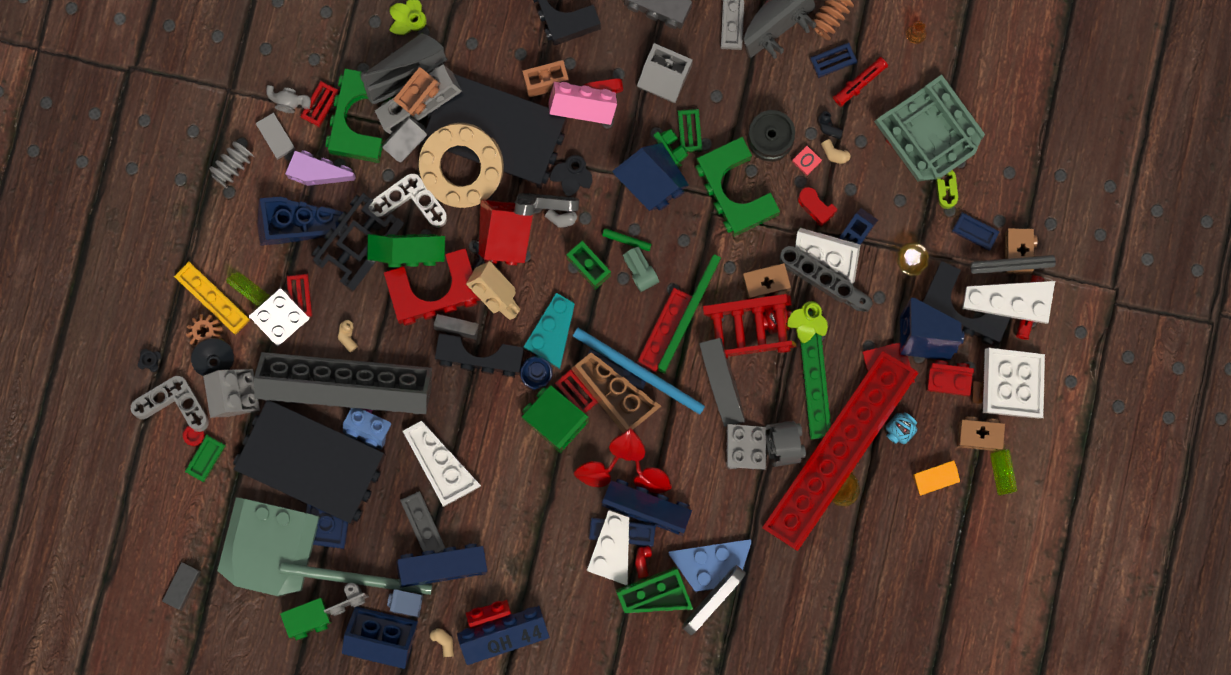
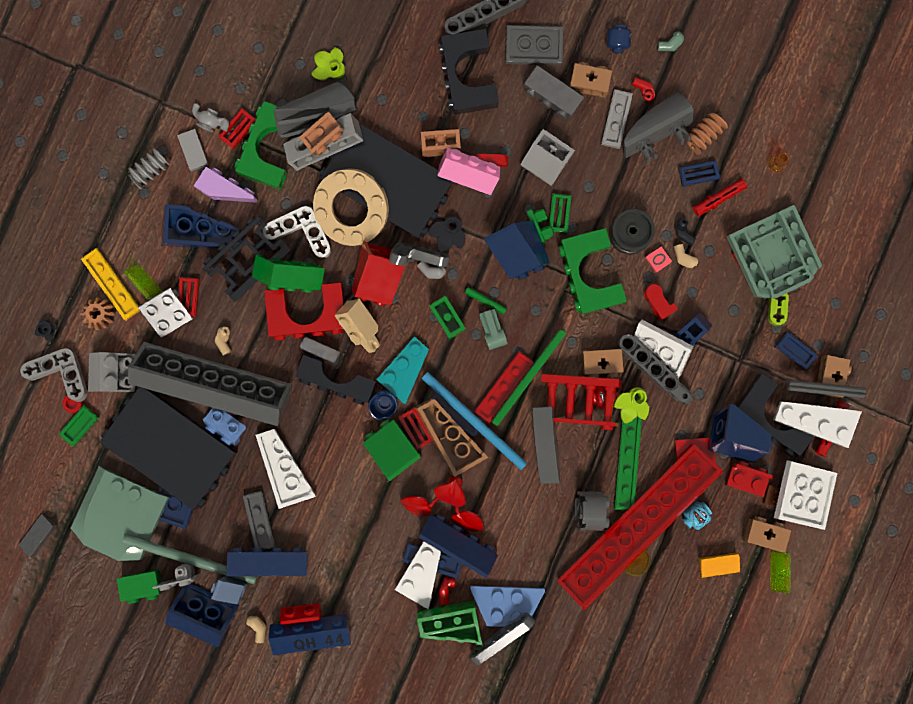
camera: 10 degrees right, 5 degrees up
(212, 349) = (100, 331): black dish -> none
(405, 139) = (305, 174): flat silver slope -> none
(746, 447) = (556, 506): light grey hinge -> none
(912, 259) = (736, 365): clear yellow hair -> none

